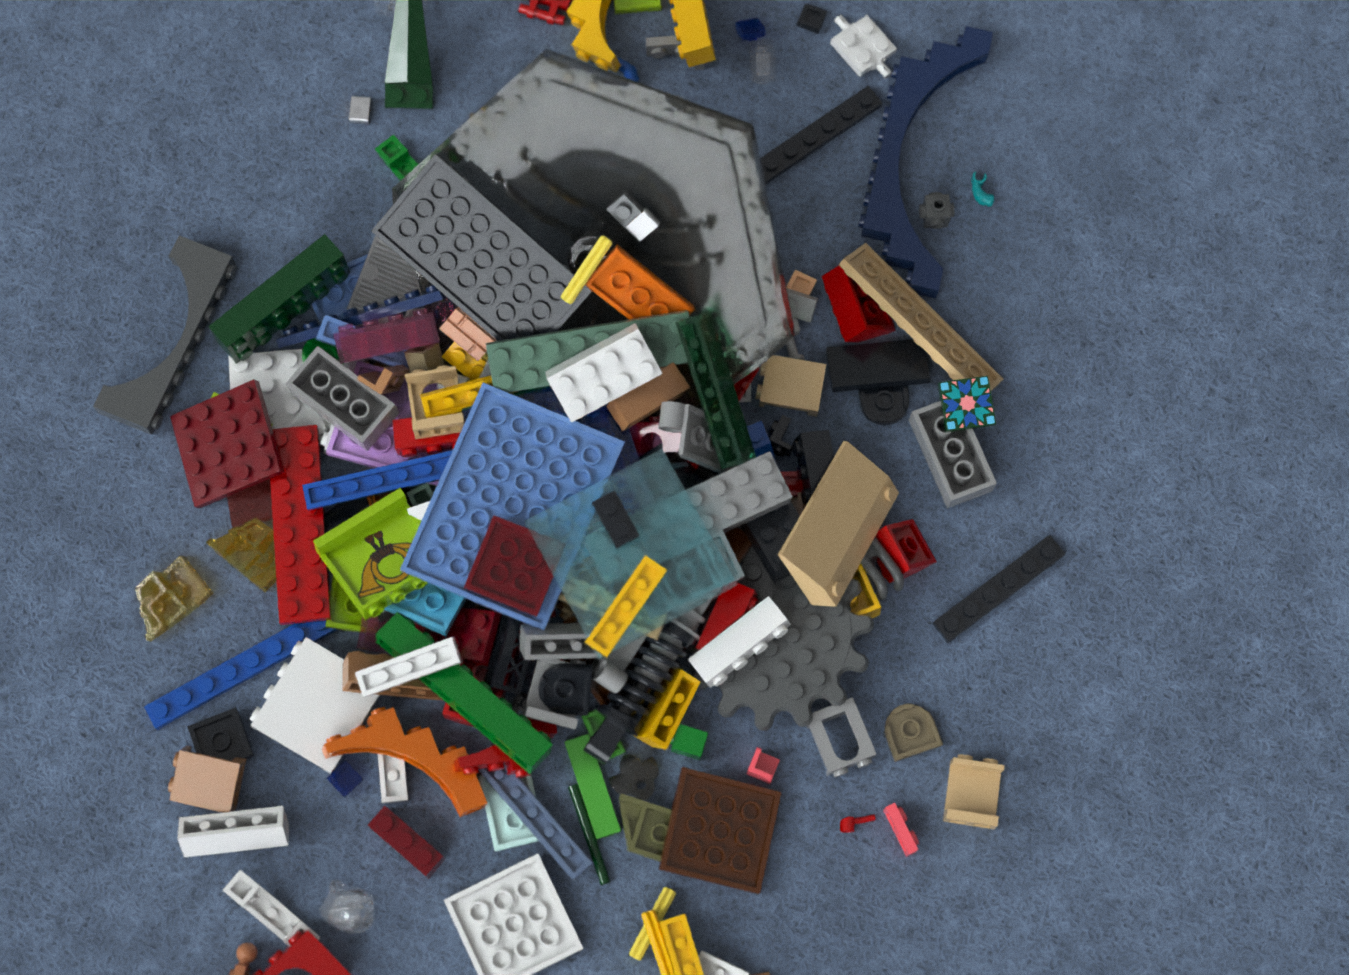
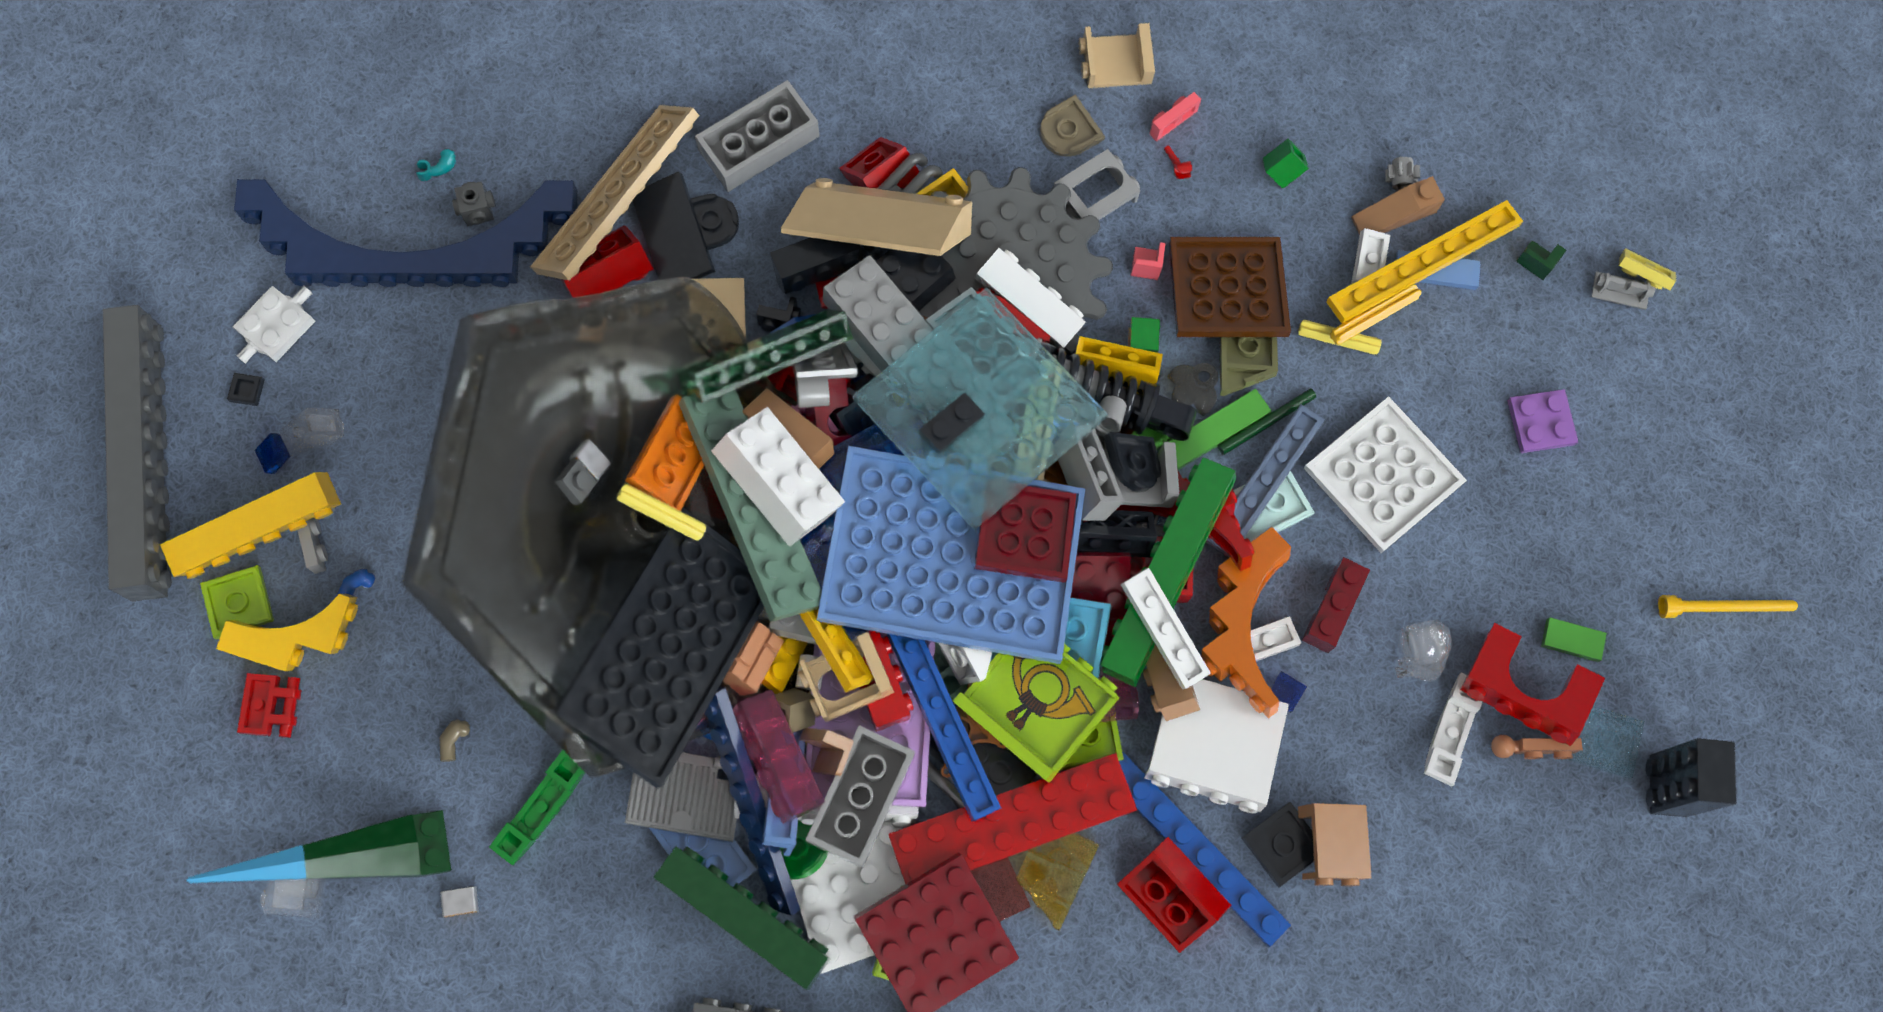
camera: 105 degrees left, 0 degrees up
(169, 601) = (1135, 953): clear yellow slope -> none
(207, 640) = (1174, 895): none -> red slope
(233, 831) = (1382, 796): white brick -> none
(626, 606) = (1048, 390): yellow plate -> none
(819, 133) = (389, 345): black plate -> none
(833, 921) = (1285, 163): none -> green panel
(966, 403) = (706, 120): tile -> none
(998, 589) = (895, 71): black plate -> none

